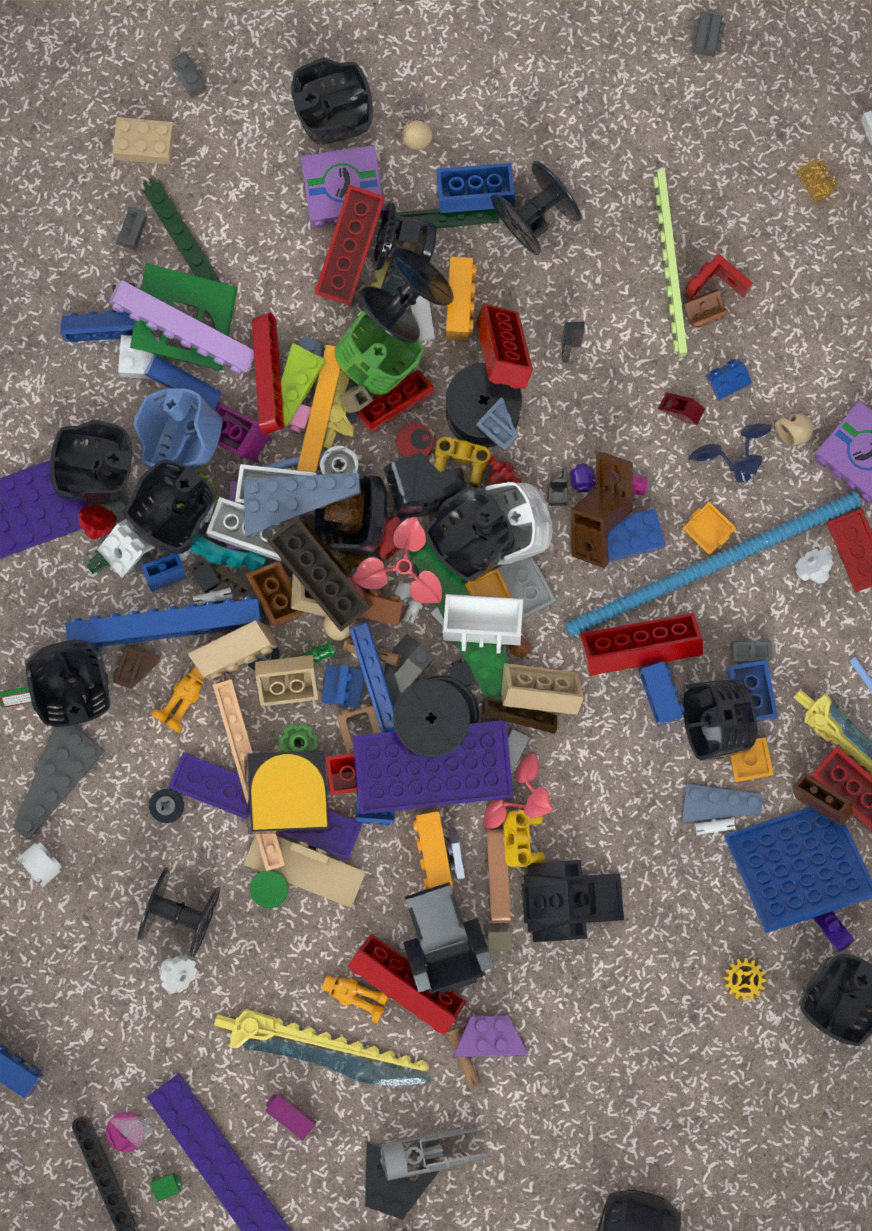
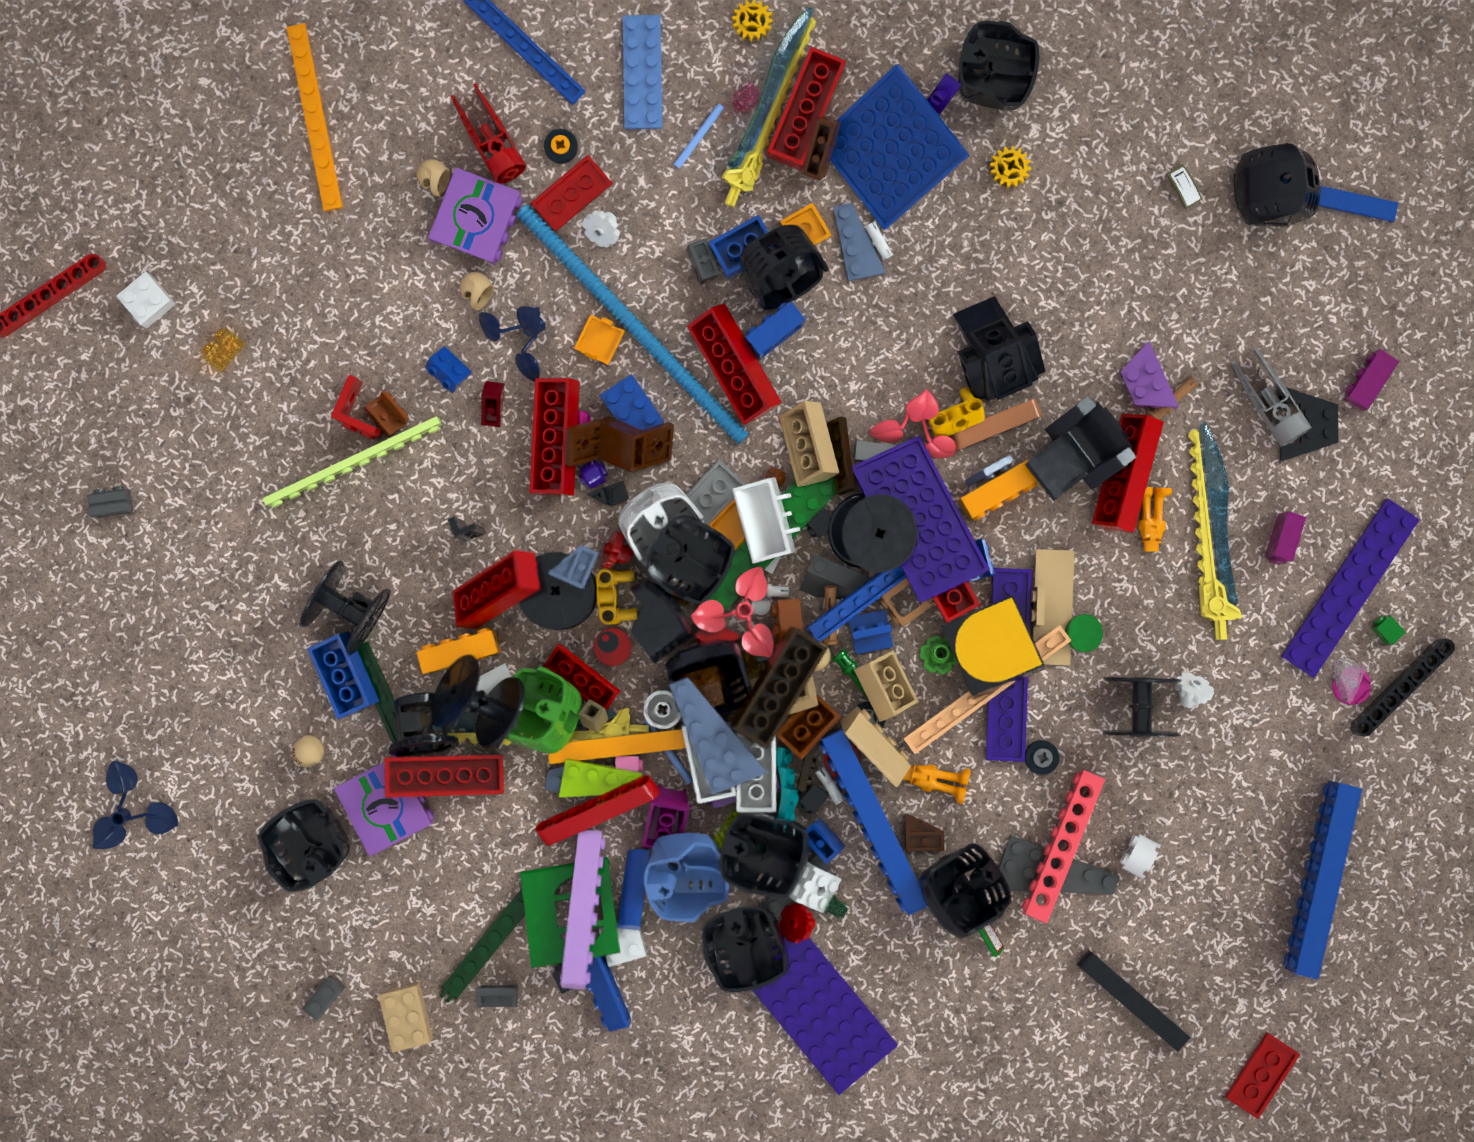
camera: 110 degrees left, 5 degrees up
(21, 750) = (1093, 785): none -> coral brick
(499, 941) = (1056, 403): dark tan brick -> none
(652, 459) = (553, 412): none -> red brick
(669, 1145) = (1184, 186): none -> slope

